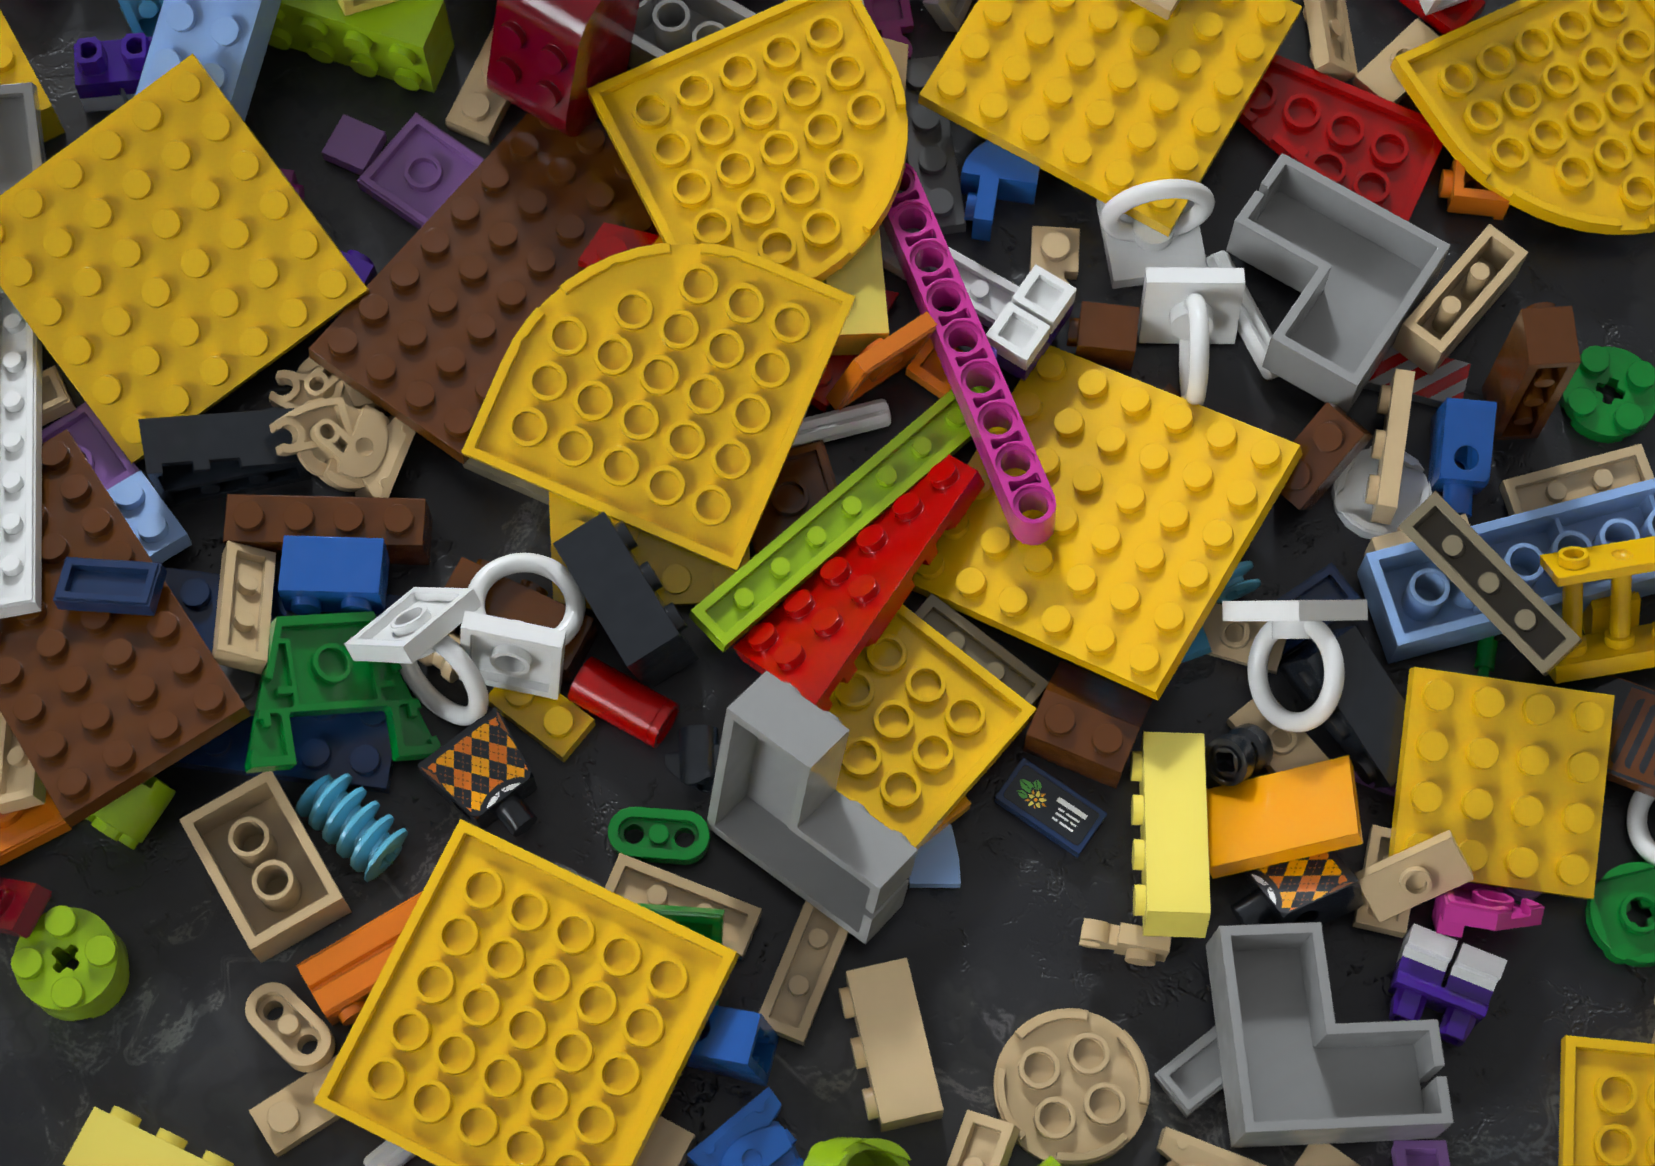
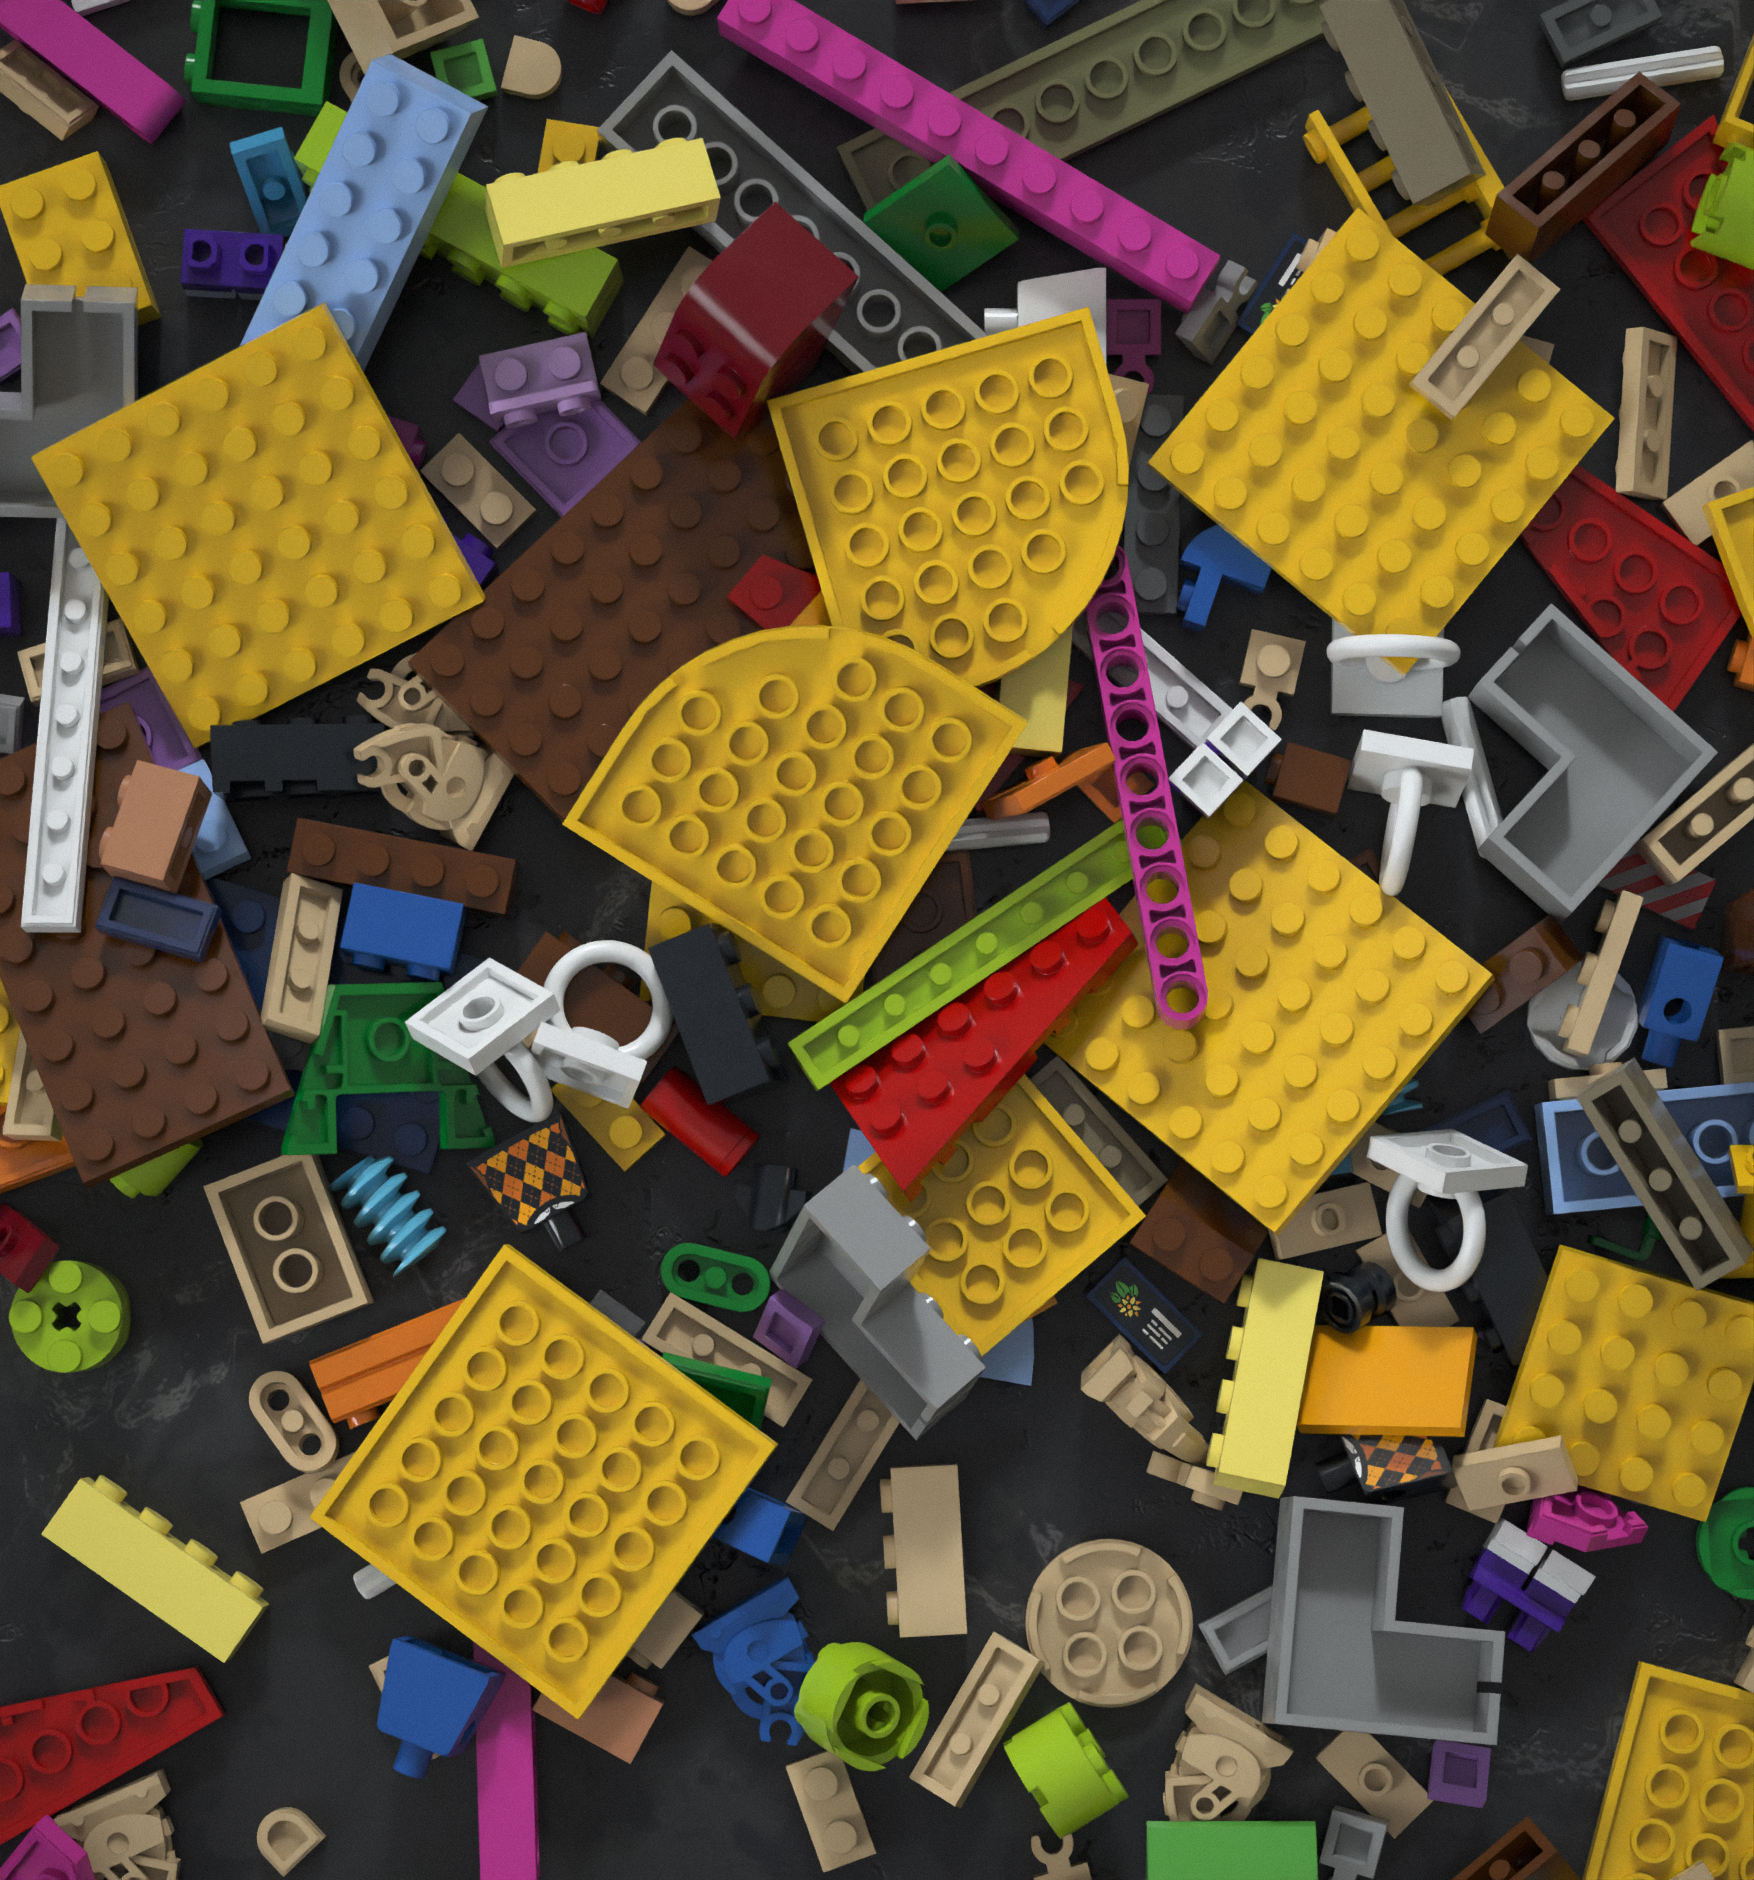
camera: 15 degrees right, 15 degrees up
(98, 507) = (155, 826): none -> nougat brick
(356, 222) = (478, 491): none -> tan plate
(393, 121) = (540, 380): none -> lavender bracket
(732, 867) = (789, 1328): none -> medium lavender tile
(1067, 875) = (1143, 1401): none -> tan piece
(1196, 697) = (1329, 1222): none -> tan plate

